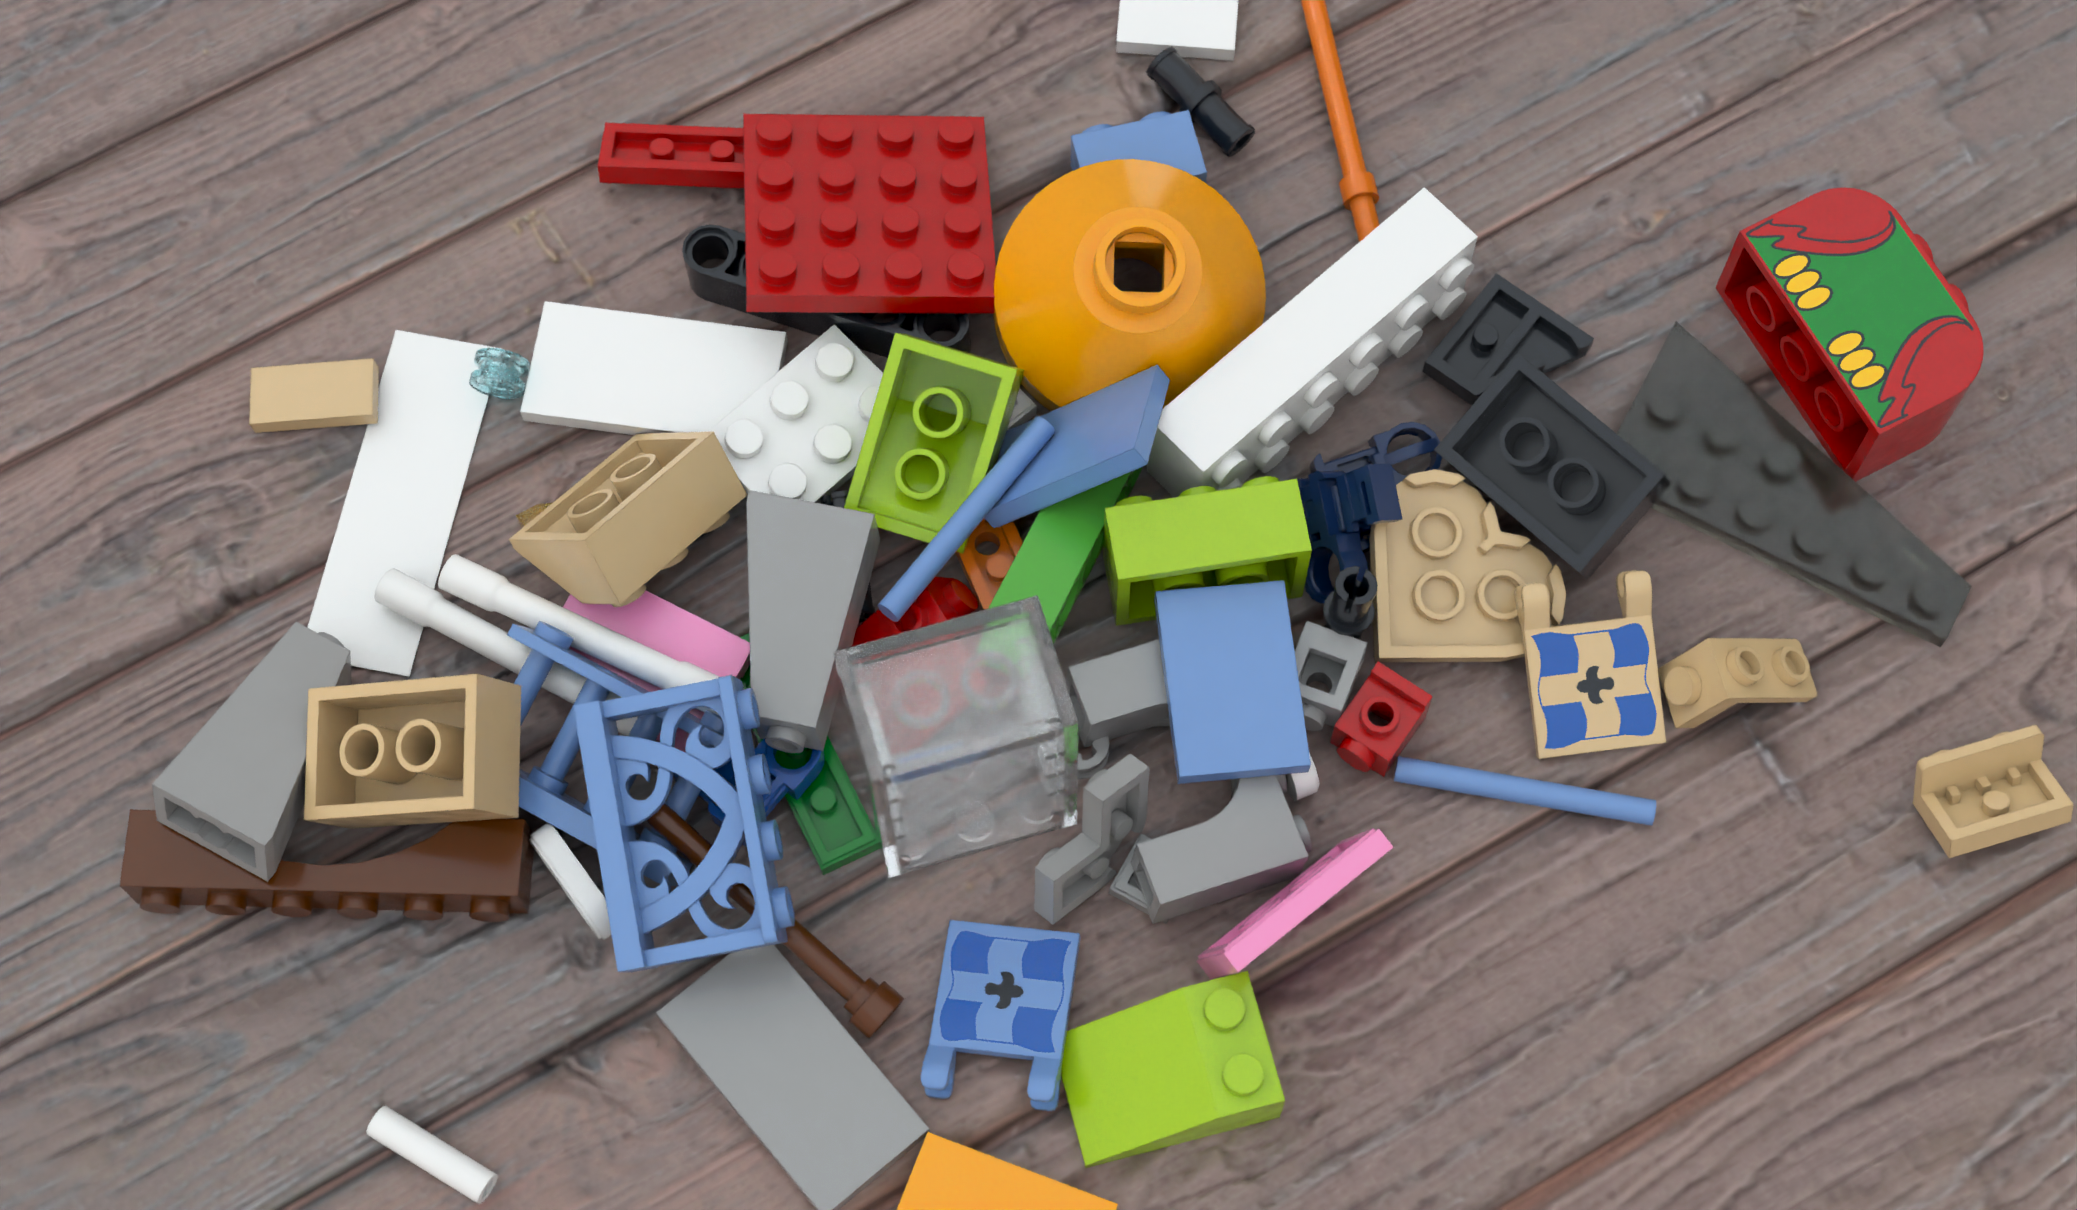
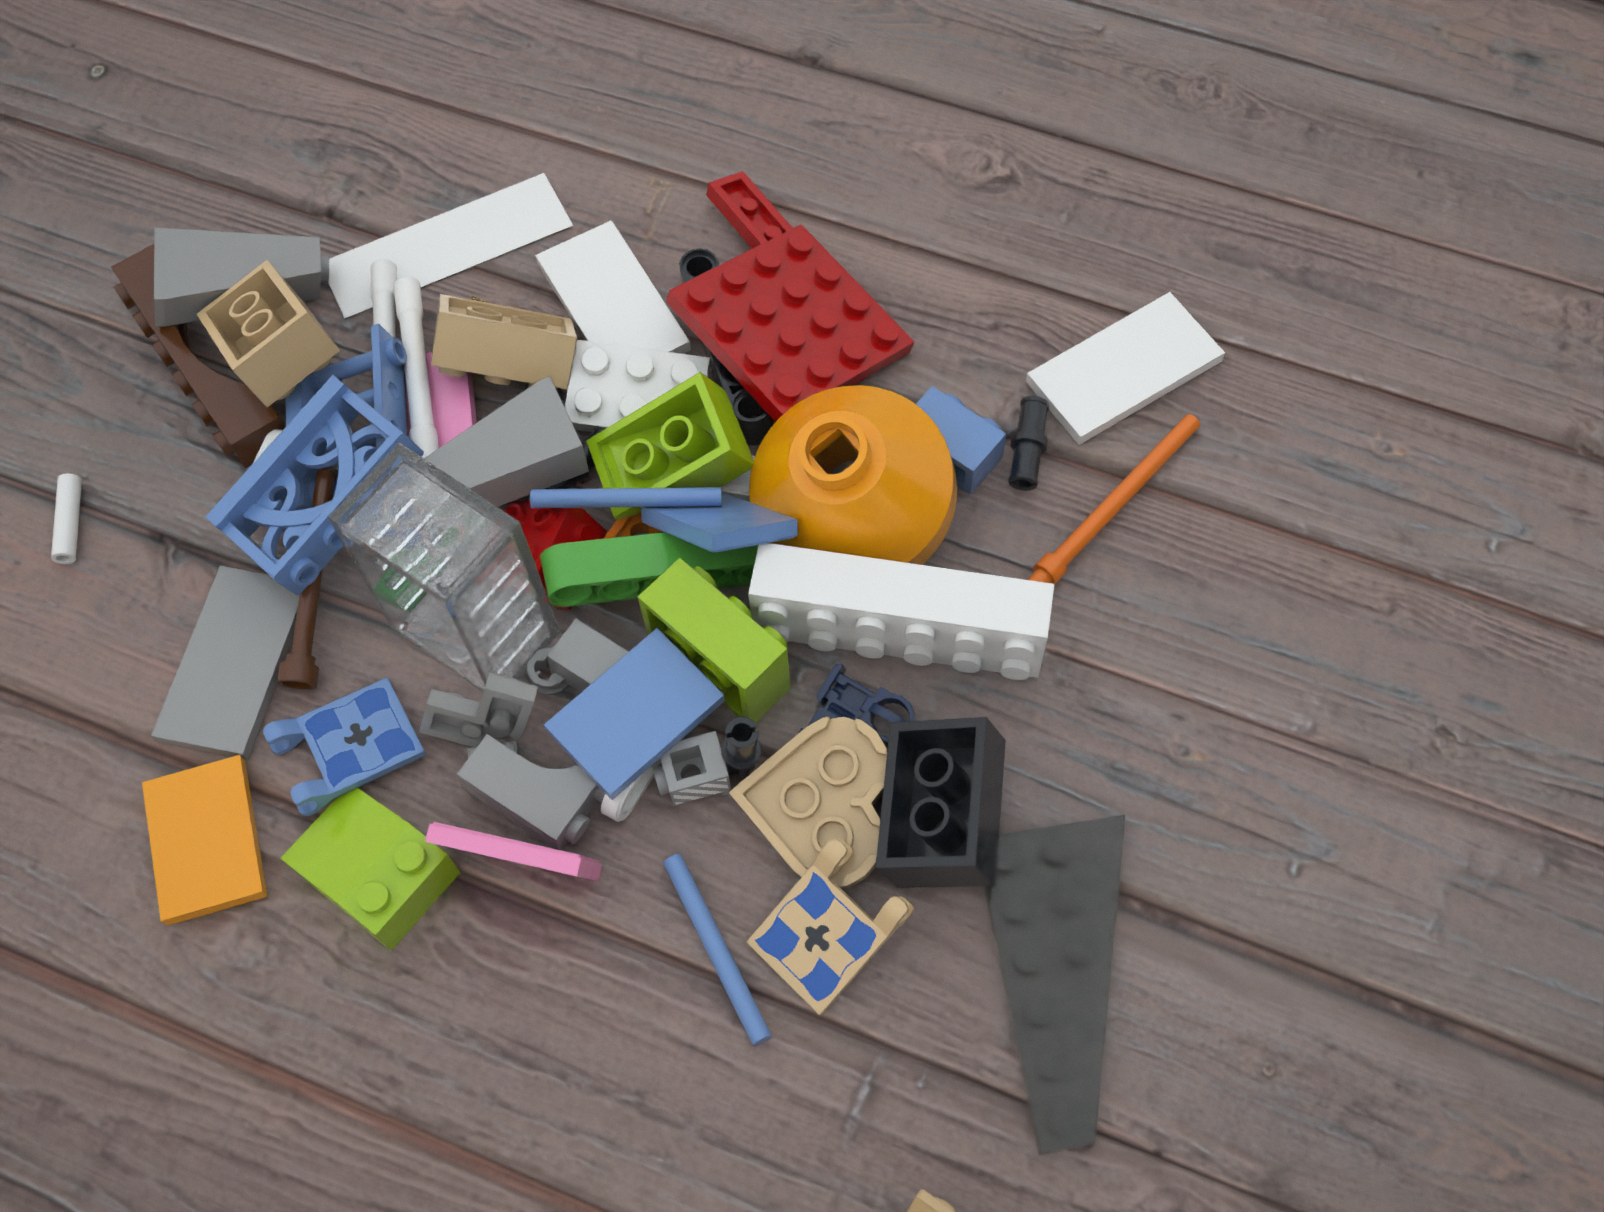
camera: 55 degrees right, 5 degrees down
(314, 395) = (471, 163): tan tile -> none
(499, 373) = (548, 228): clear light blue bush -> none
(1332, 509) = (808, 697): dark blue piece -> none
(1394, 700) = (700, 838): red brick -> none
(1496, 329) = (1024, 716): black wing -> none
(1734, 672) = (900, 1028): tan bracket -> none
(1854, 324) = (1215, 927): brick -> none

